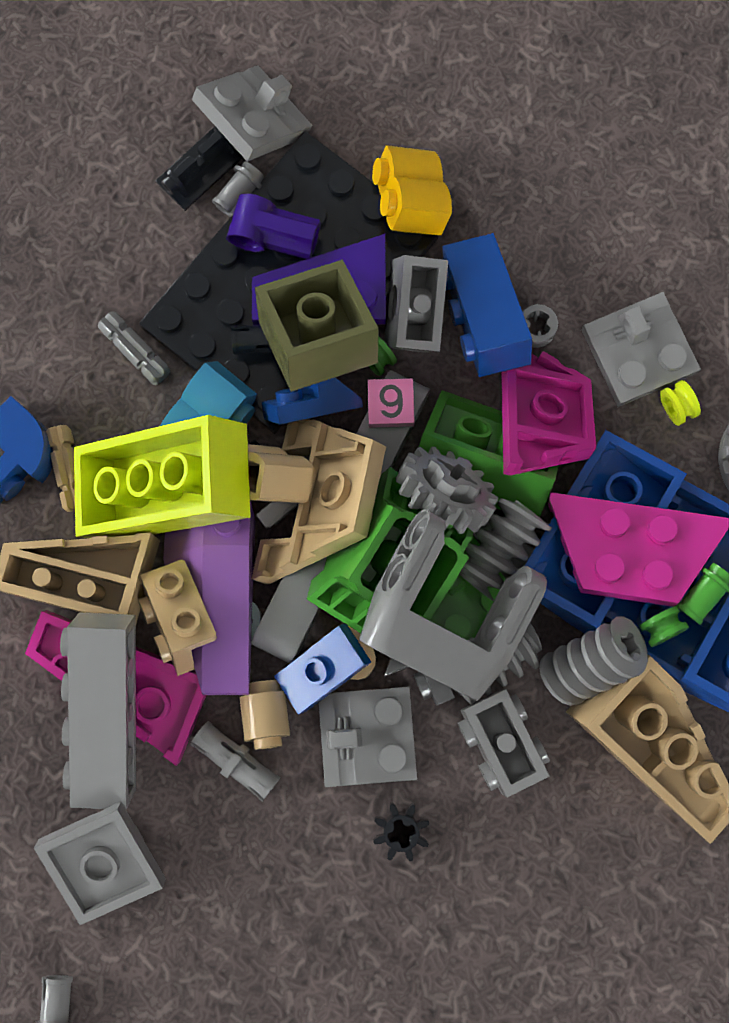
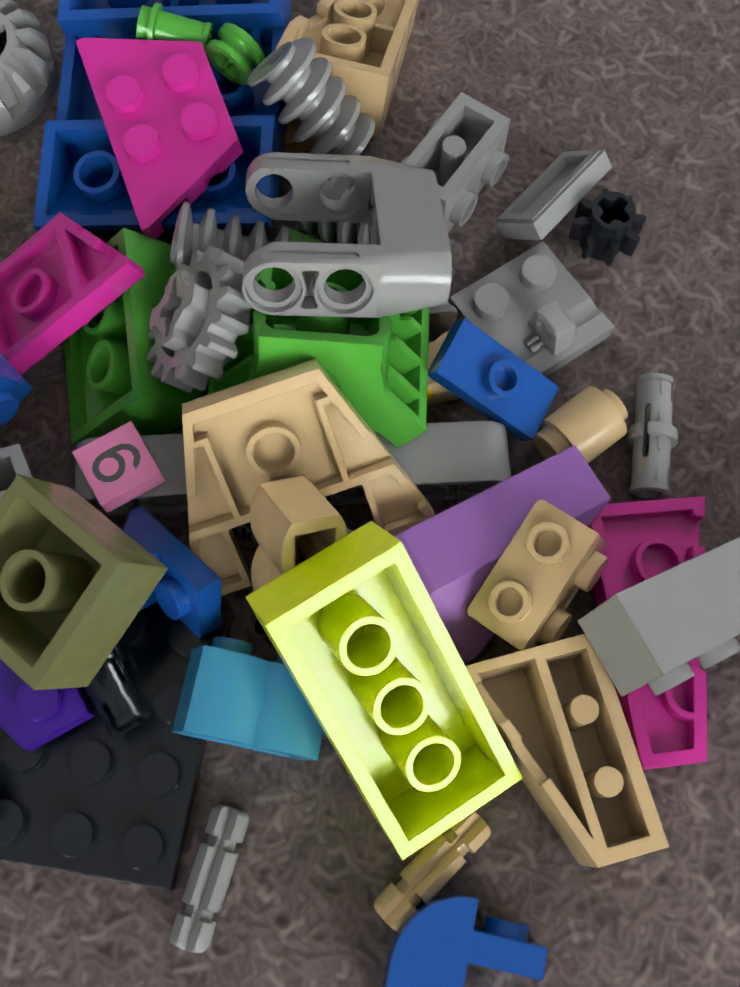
camera: 125 degrees left, 10 degrees down
(448, 810) = (553, 194): none -> light grey tile

